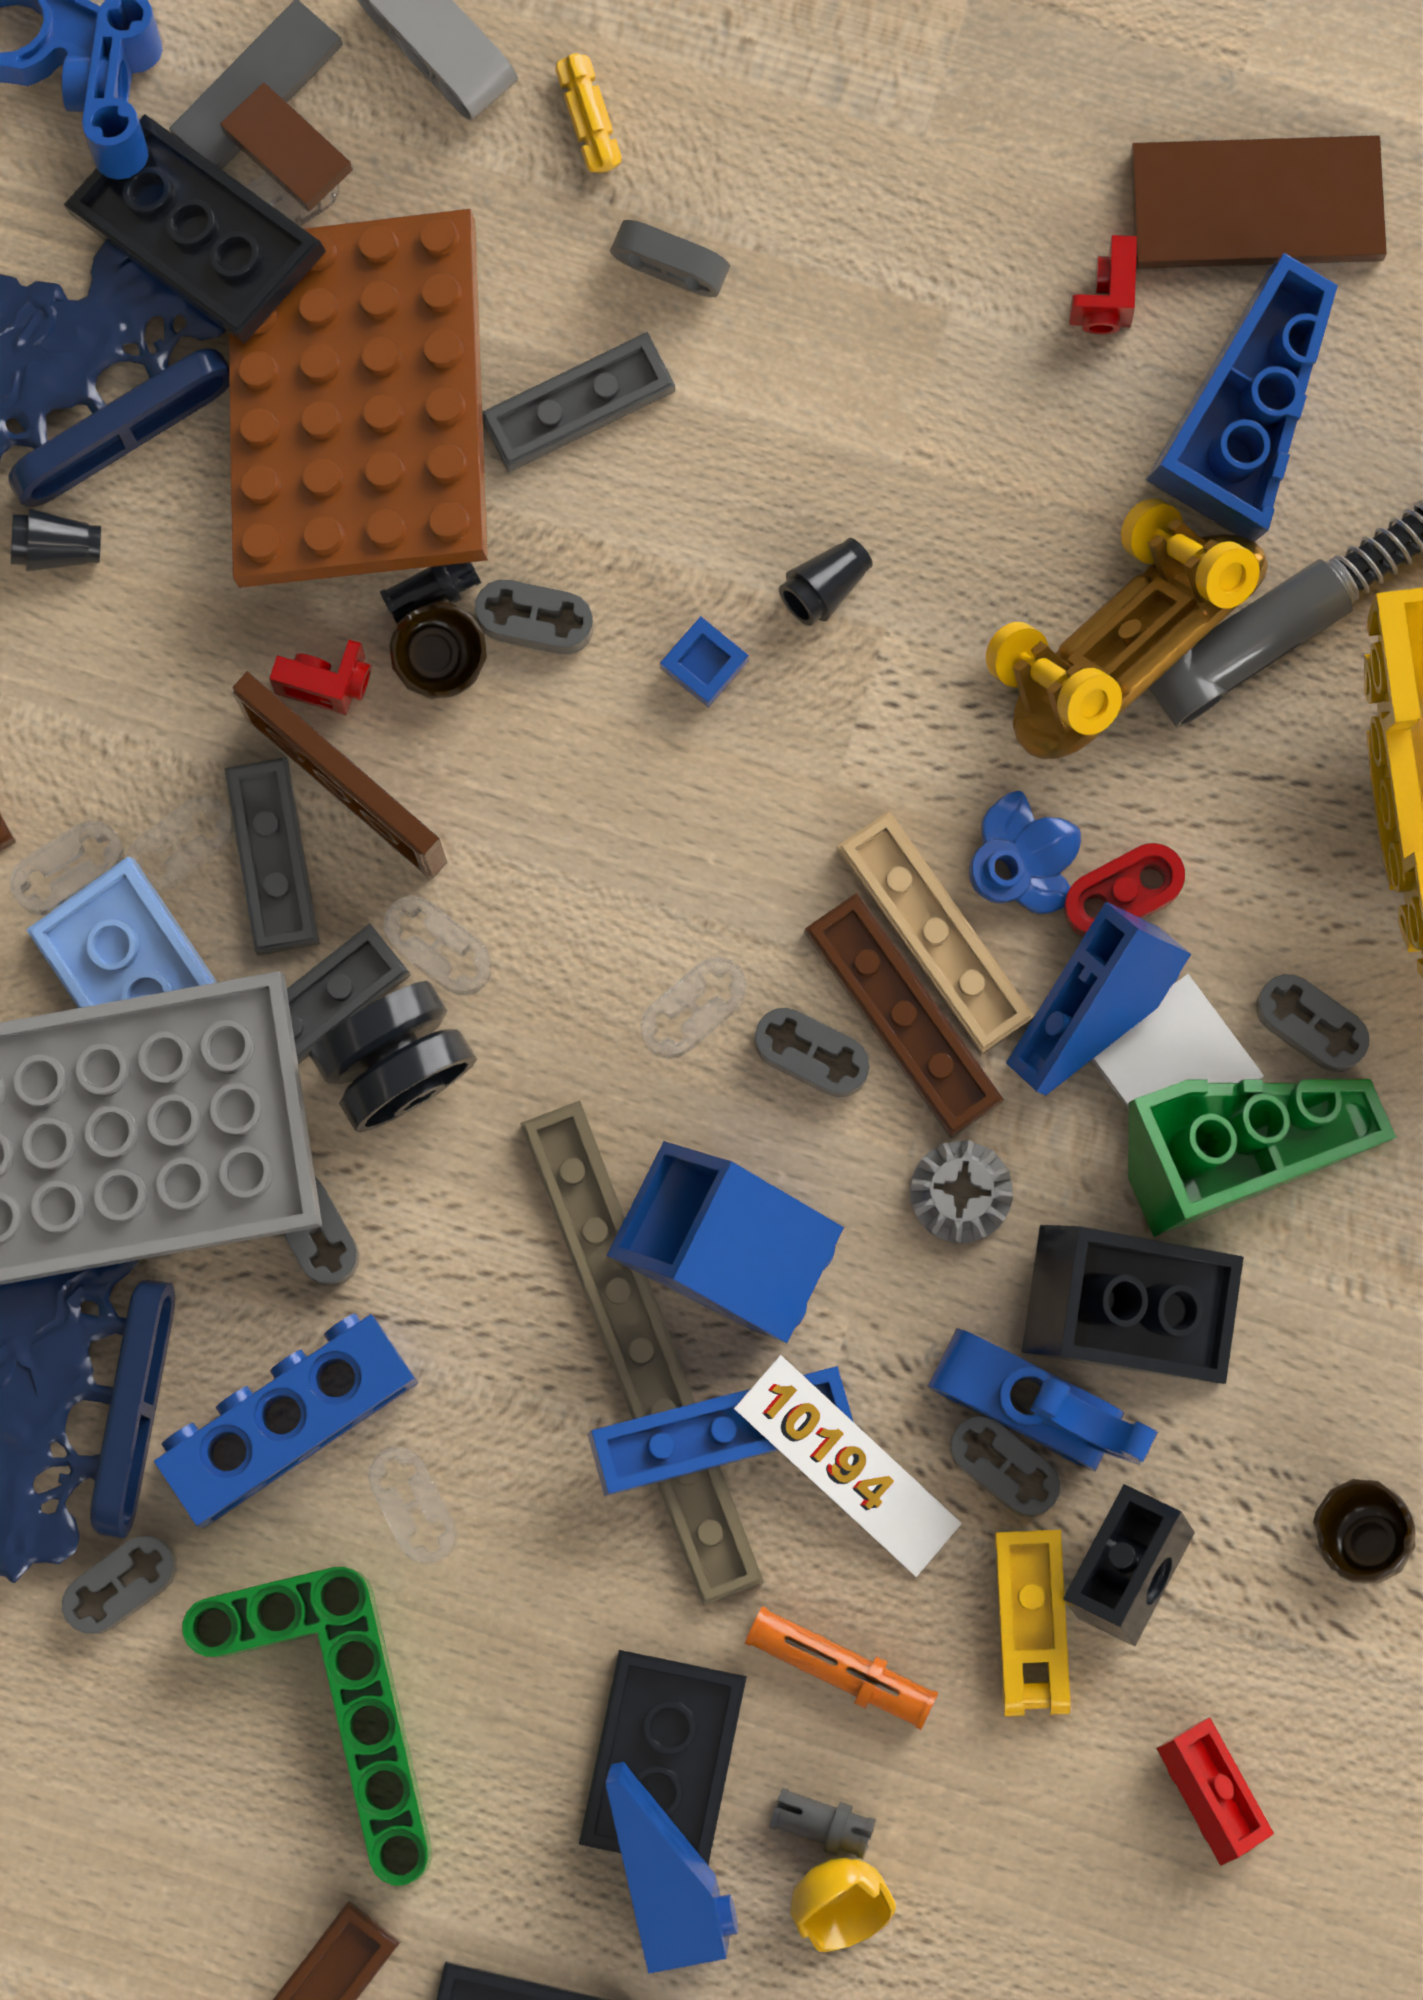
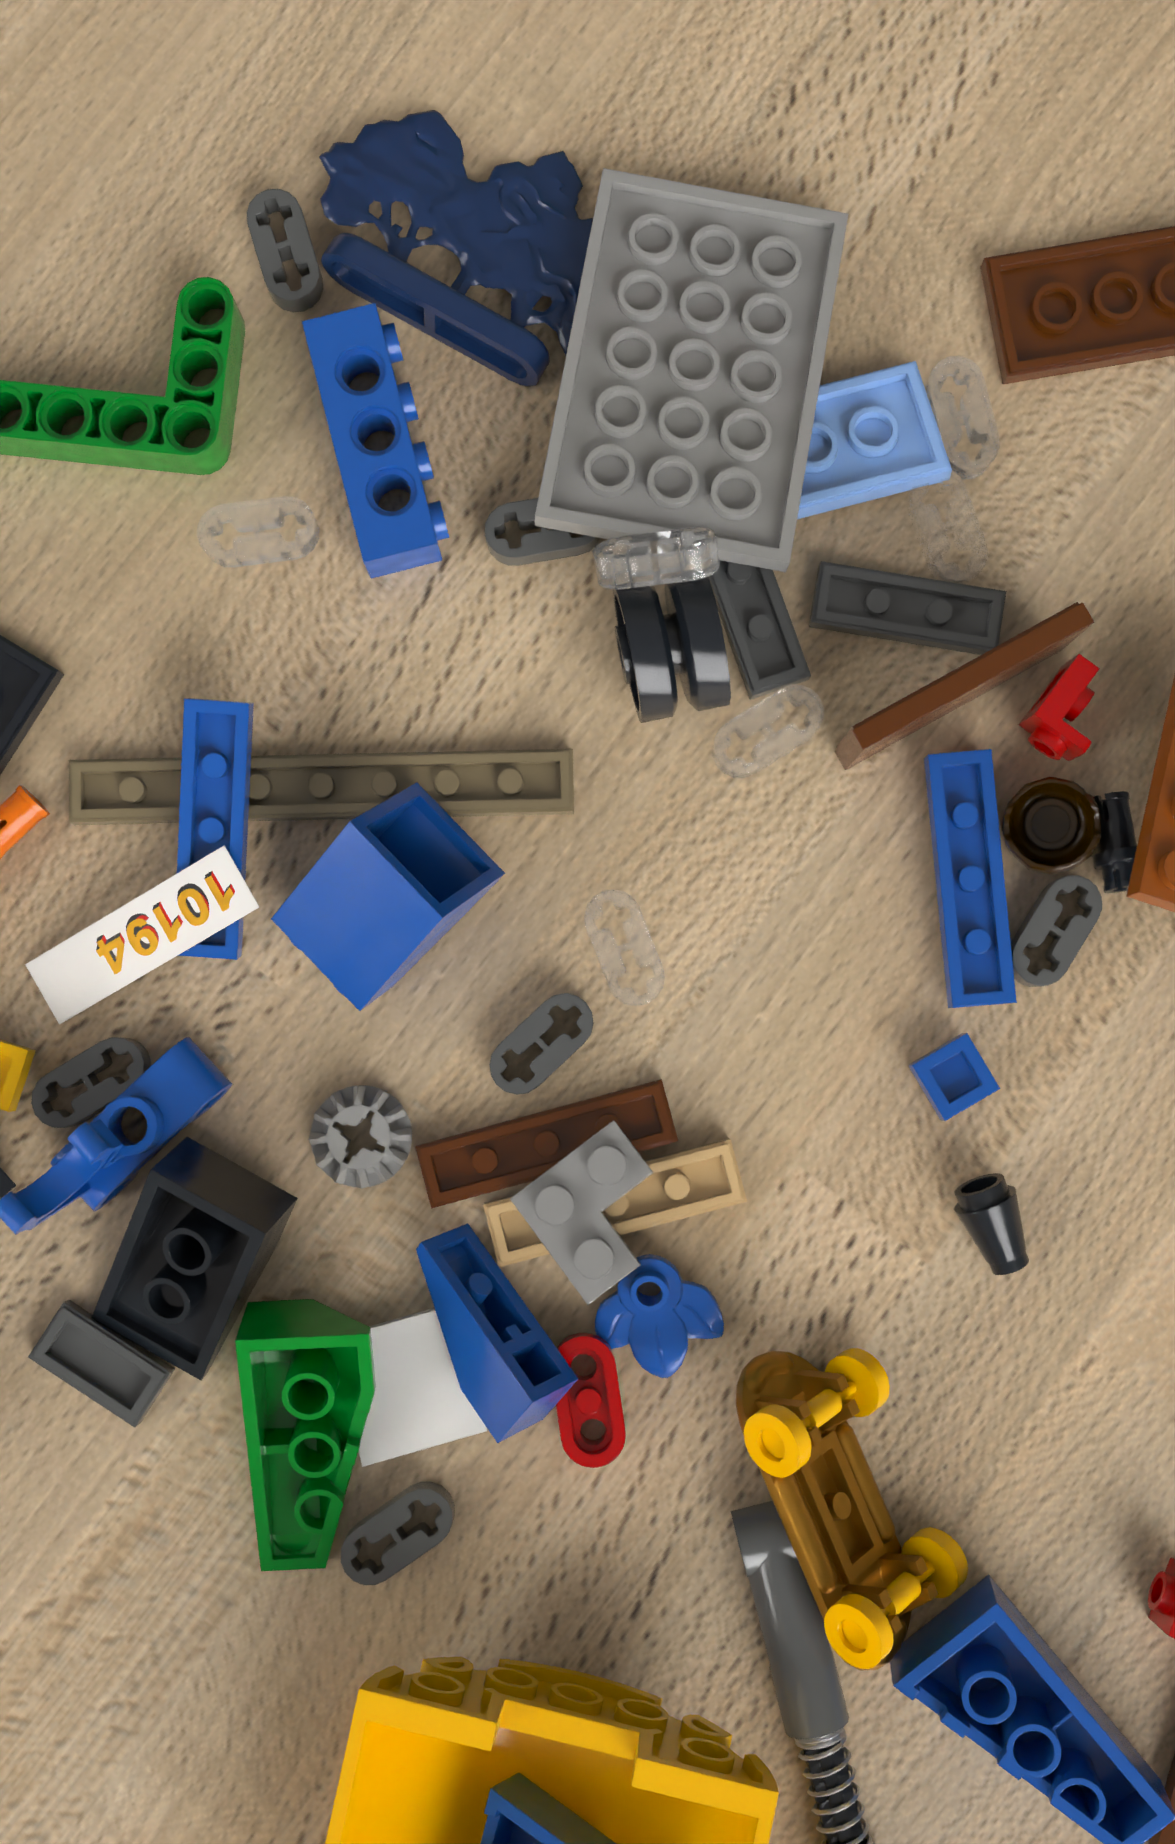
camera: 110 degrees right, 5 degrees up
(321, 1092) = (656, 558): none -> clear beam
(513, 709) = (969, 879): none -> blue plate
(956, 968) = (569, 1204): none -> light grey plate
(1264, 1358) = (101, 1363): none -> dark grey tile

